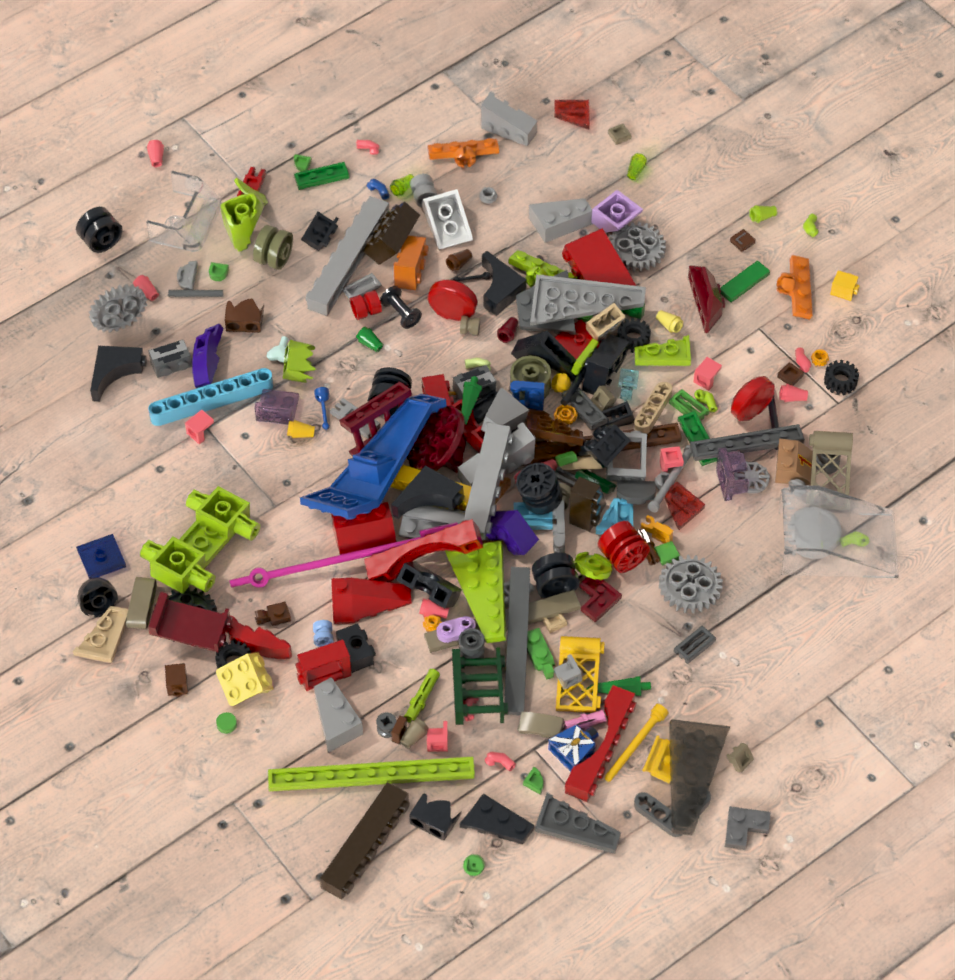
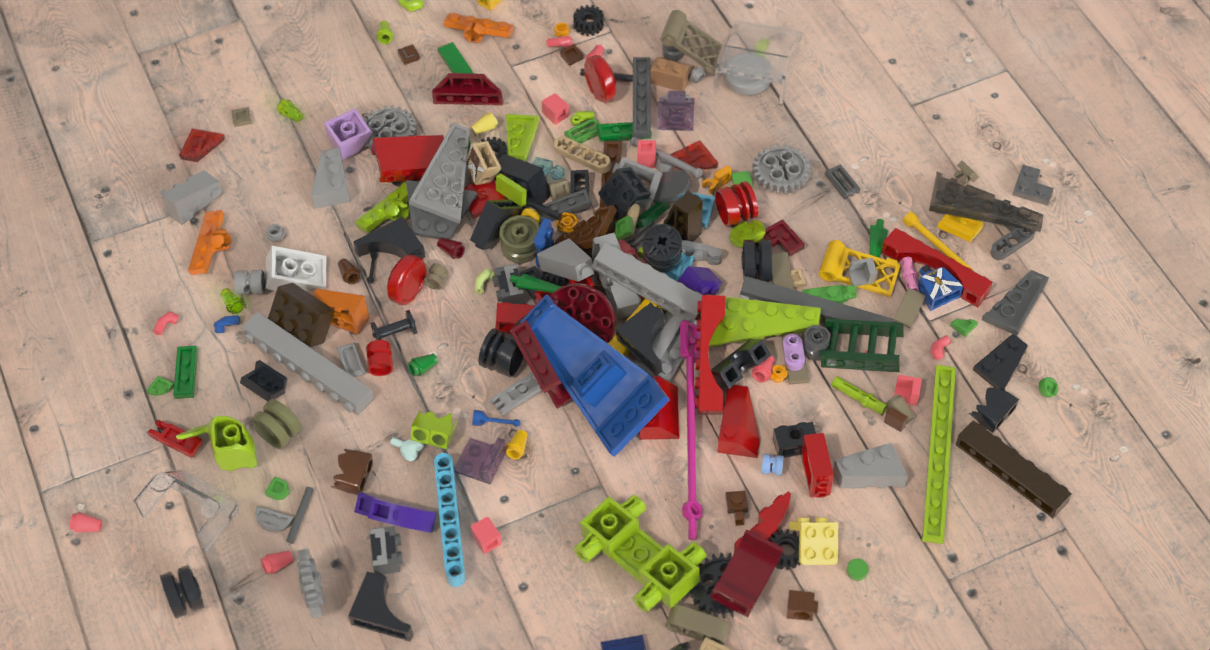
camera: 75 degrees left, 0 degrees up
(385, 730) = (888, 434): dark grey wheel -> none

